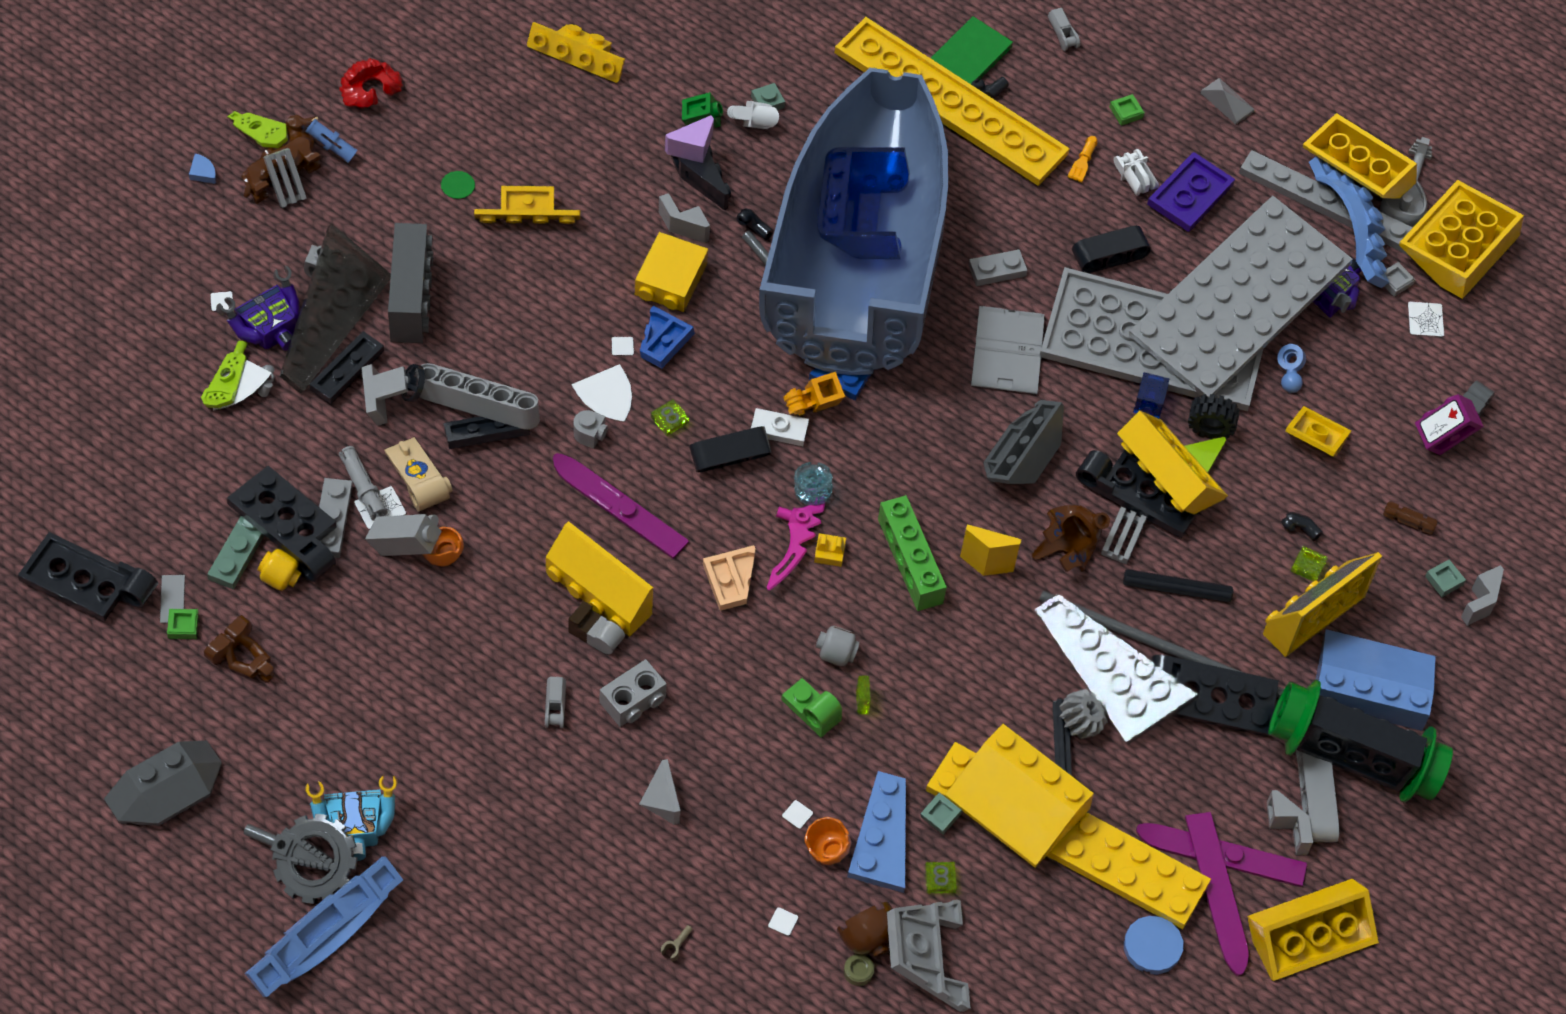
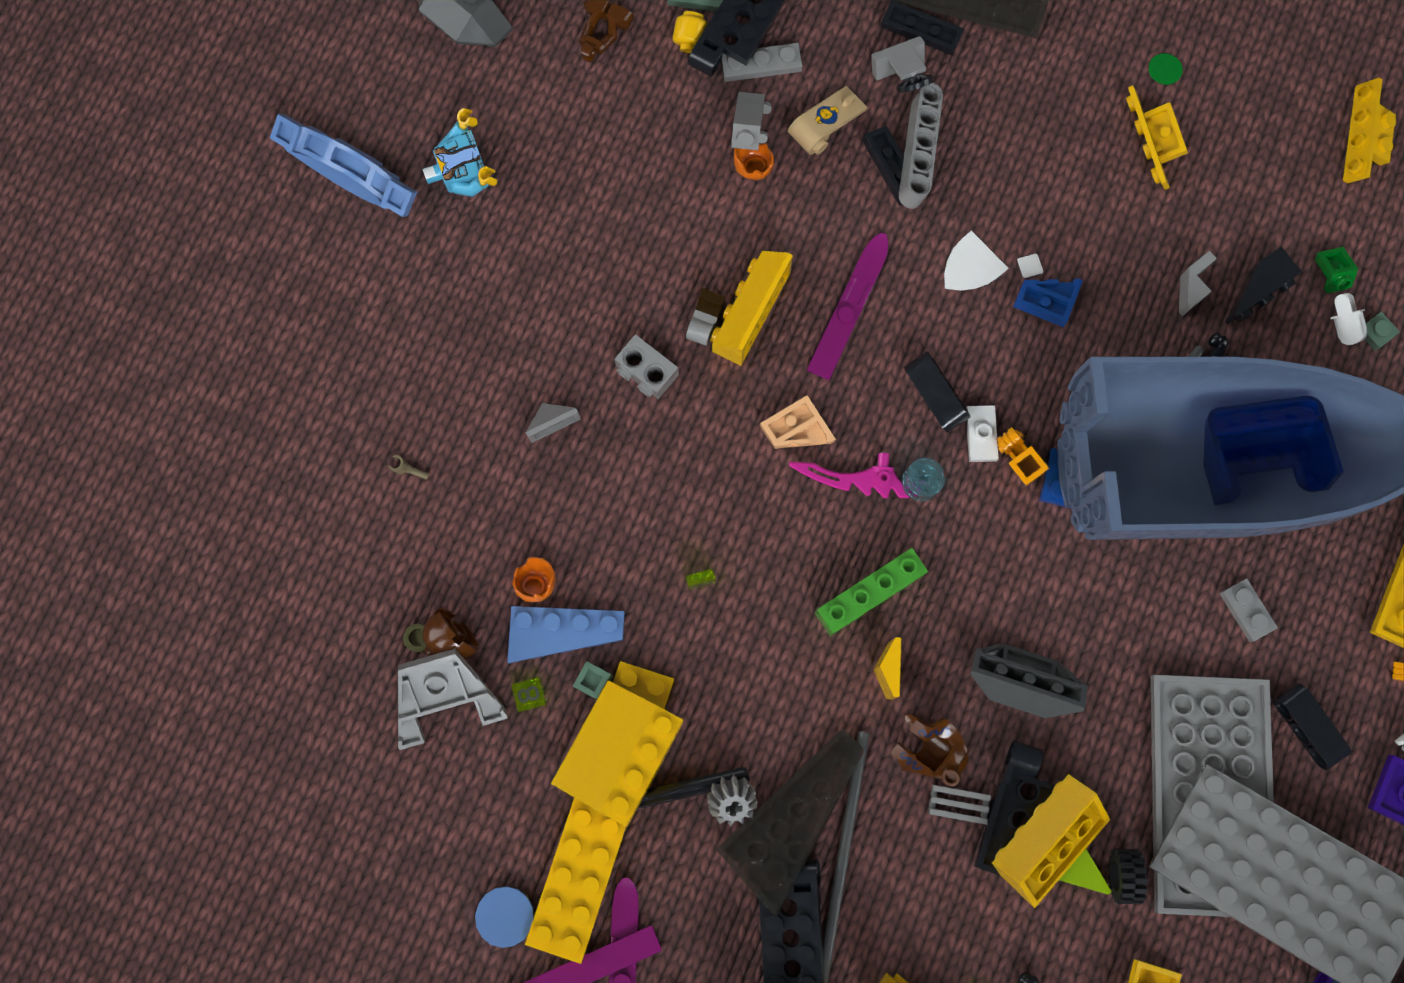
camera: 85 degrees right, 20 degrees up
(292, 849) = (414, 128): dark grey bar -> none
(366, 490) = (793, 82): light grey pin -> none
(390, 501) = (786, 100): white sticker -> none
(410, 283) = (1027, 49): dark grey brick -> none
(555, 701) = (626, 301): light grey bar -> none
(589, 428) = (923, 256): light grey plate -> none
(669, 417) = (960, 328): clear neon green tile -> none
(671, 272) = (1126, 287): yellow brick -> none
(691, 141) = (1286, 263): lavender slope -> none
(783, 921) = (454, 558): white sticker -> none
(797, 814) = (566, 547): white sticker -> none
(817, 710) = (678, 535): bright green plate -> none
(830, 550) = (856, 513): yellow tile -> none
(837, 646) = (746, 543): light grey head -> none
(1008, 349) = (1149, 641): light grey piece -> none
(1151, 394) = (1136, 803): clear blue brick -> none
(1178, 585) = (915, 873): black axle -> none
(1291, 381) = (1210, 956): medium blue plate -> none

